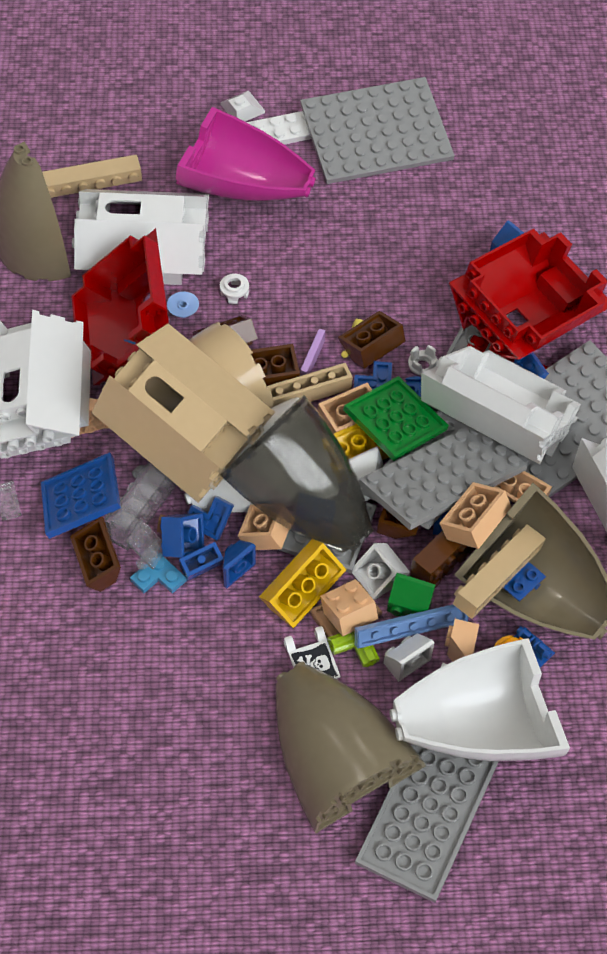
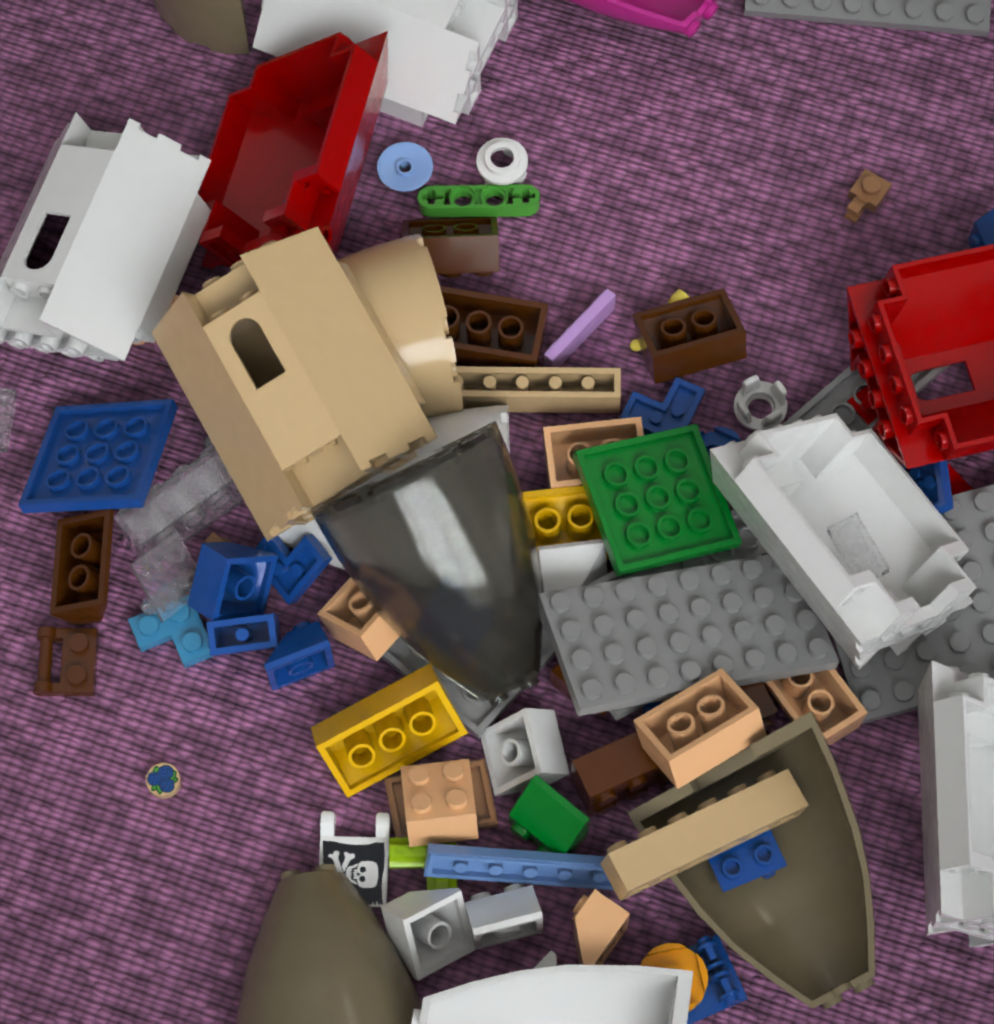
camera: 25 degrees right, 10 degrees up
(110, 609) = (77, 661): none -> reddish brown plate
(186, 654) = (163, 780): none -> tile
(254, 302) = (478, 206): none -> bright green beam
(371, 675) = (429, 929): none -> white slope
(429, 247) = (866, 193): none -> medium nougat plate

